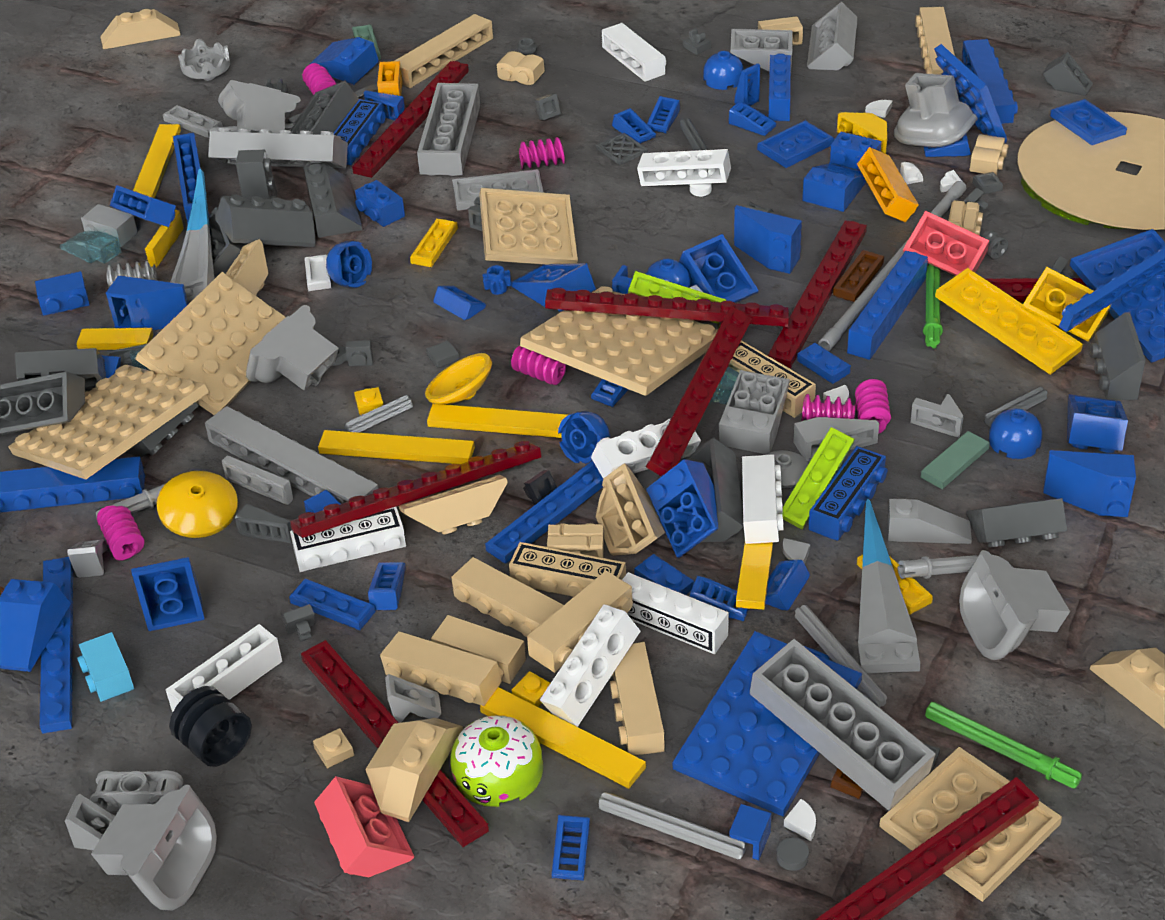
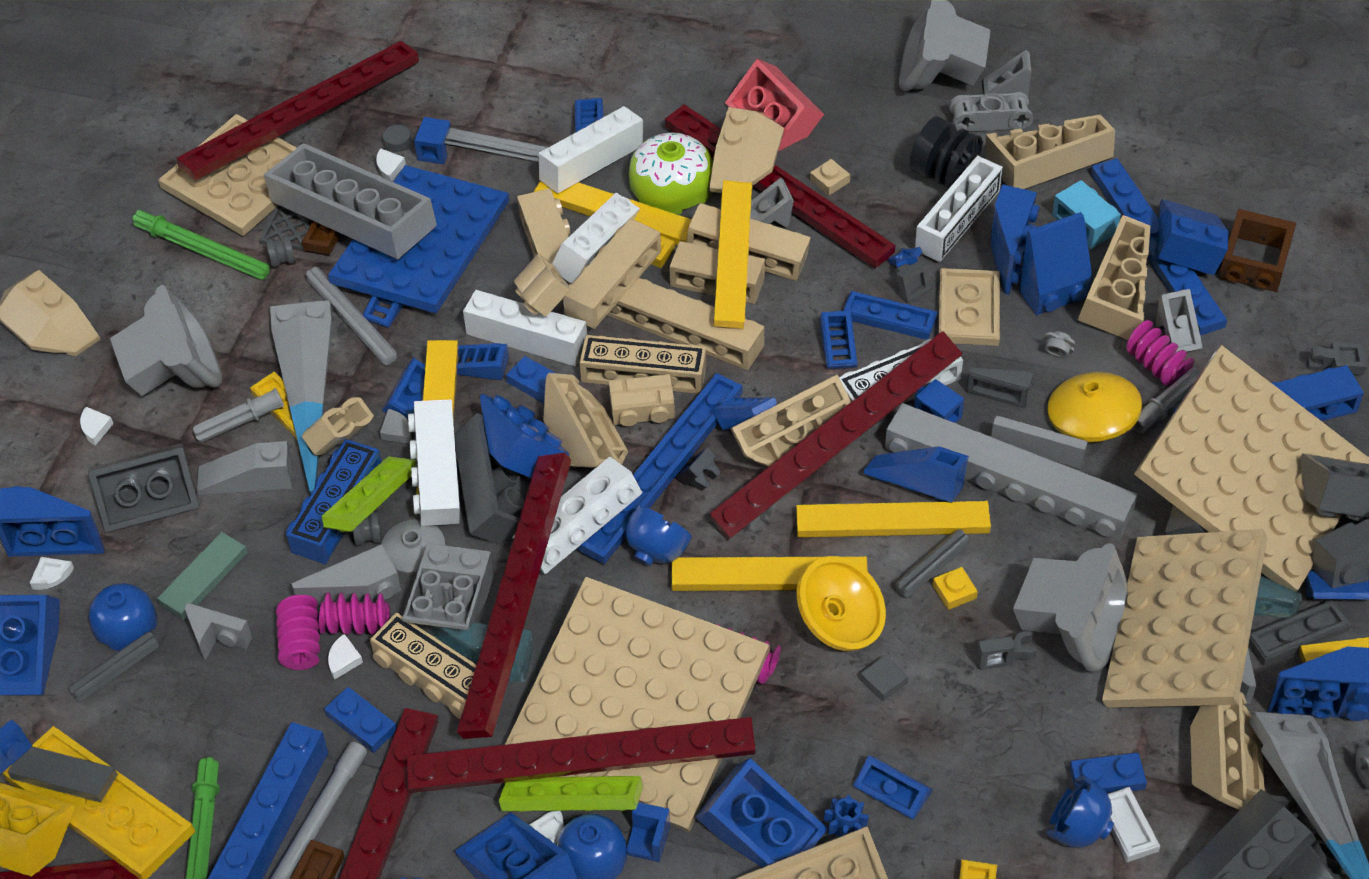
camera: 170 degrees right, 10 degrees up
(104, 727) = (1050, 150): none -> tan wedge
(110, 596) = (1119, 286): none -> tan wedge
(188, 633) = (1012, 219): none -> blue slope
(198, 553) = (1059, 344): none -> light grey plate
(257, 599) = (970, 306): none -> tan tile
(294, 647) = (905, 256): none -> blue piece
(317, 294) = (1111, 772): none -> blue plate
(362, 460) = (925, 470): none -> blue slope
(459, 633) = (733, 254): none -> yellow tile
(497, 527) = (741, 409): none -> blue slope
(576, 783) = (590, 149): none -> white brick
(650, 597) = (541, 286): none -> tan brick
(846, 530) = (337, 426): none -> tan brick
(915, 719) = (280, 251): none -> dark grey wheel
(1035, 328) = (63, 774): none -> dark grey tile
(1074, 582) = (94, 425): none -> white tile

